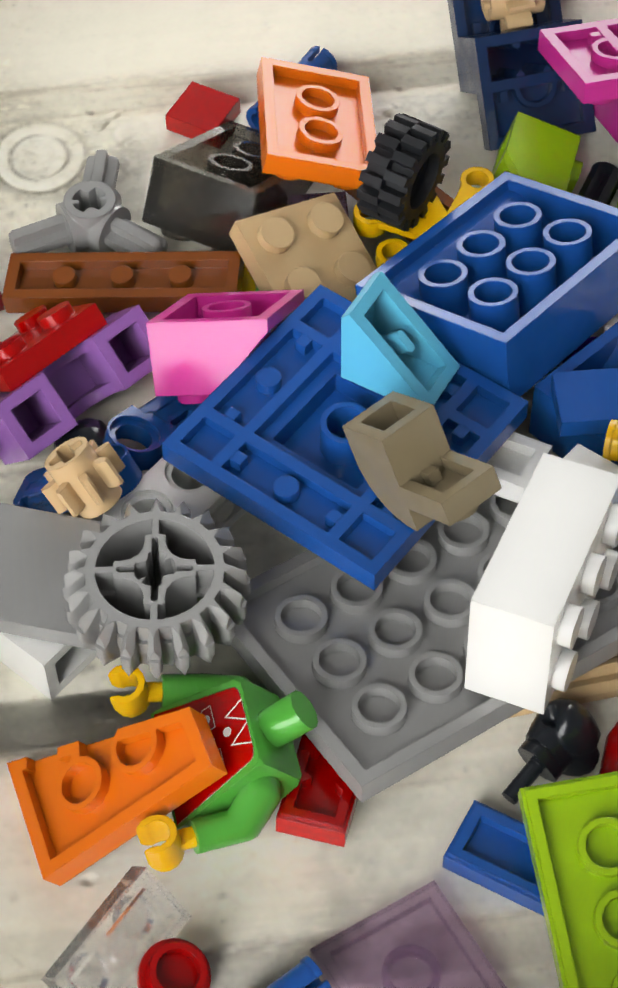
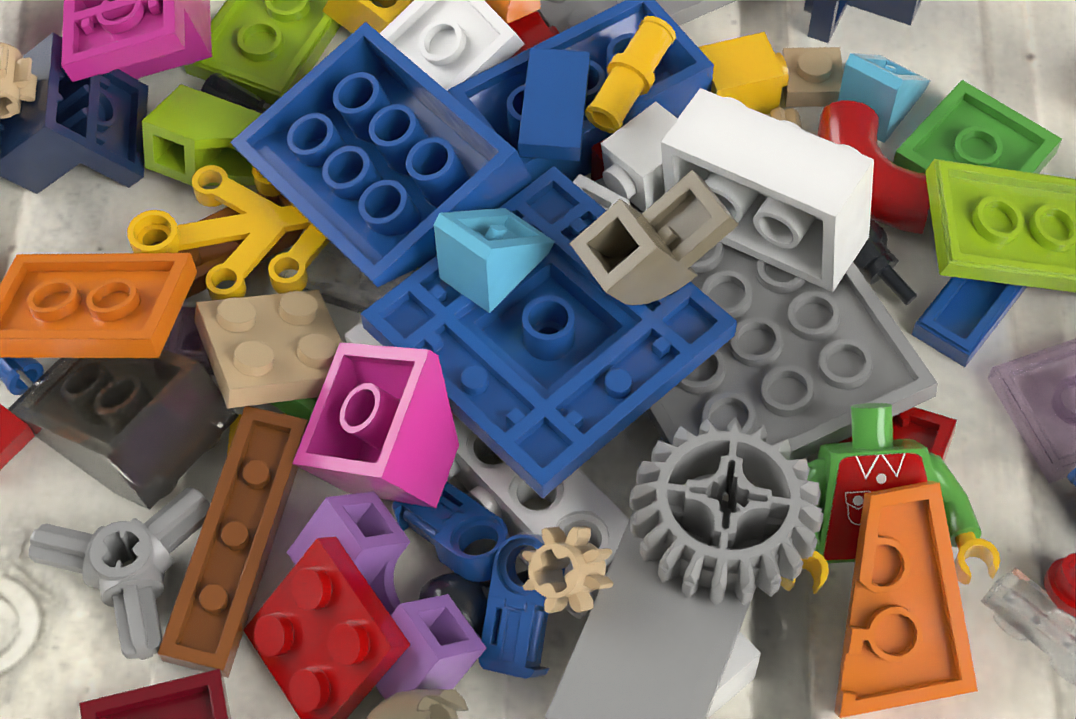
camera: 80 degrees left, 5 degrees up
(403, 171) = (222, 217): black tyre -> none

